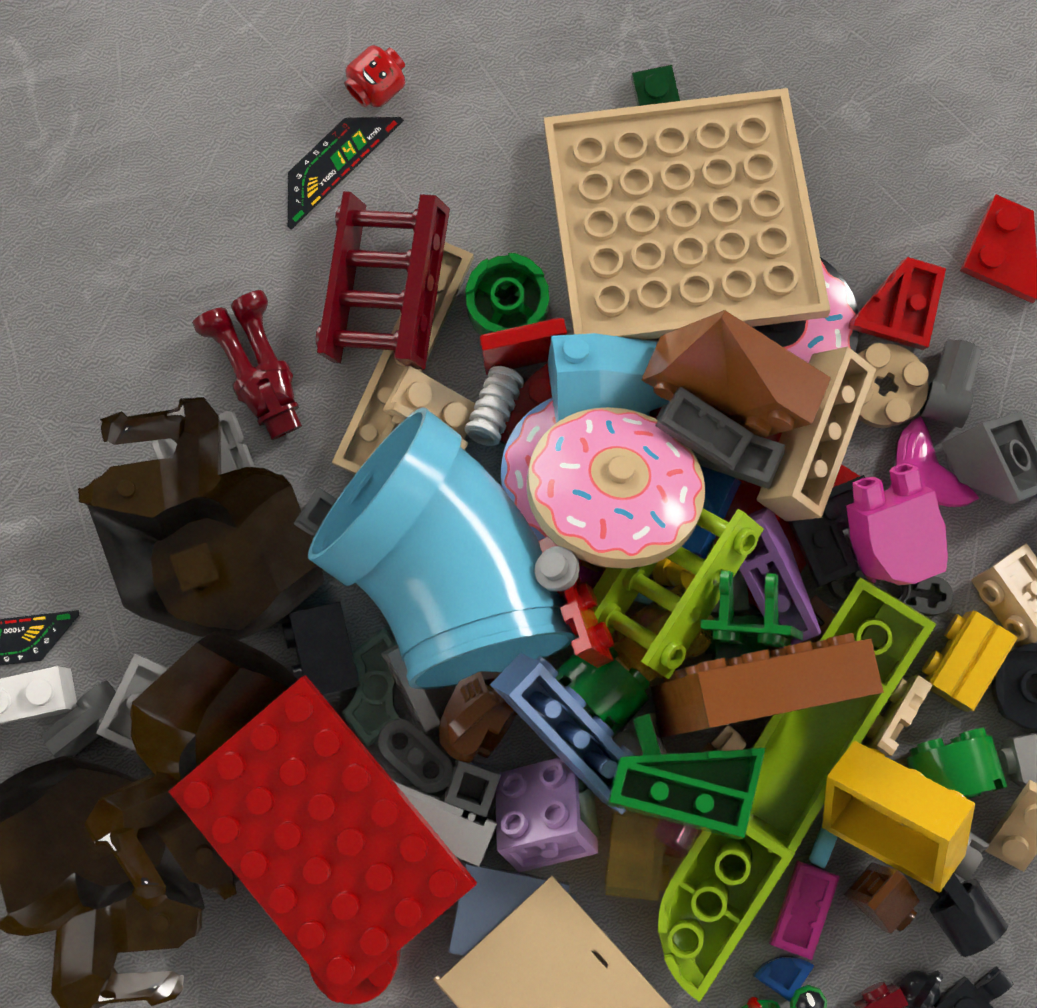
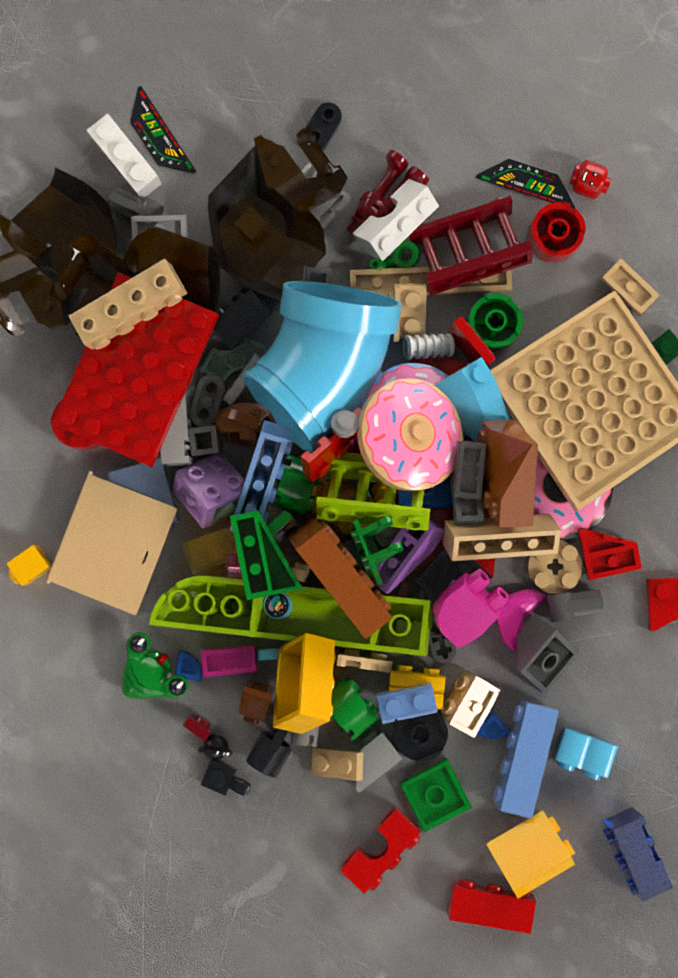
camera: 60 degrees right, 5 degrees up
(111, 399) = (325, 127): none -> black plate
(226, 800) = (128, 304): none -> tan brick
(308, 389) = (383, 235): none -> white arch
(348, 388) = (397, 257): none -> green plate
(422, 132) = (563, 219): none -> red brick
(549, 96) = (630, 287): none -> tan plate
(767, 800) = (278, 606): none -> tile
(990, 682) = (406, 702): none -> medium blue brick

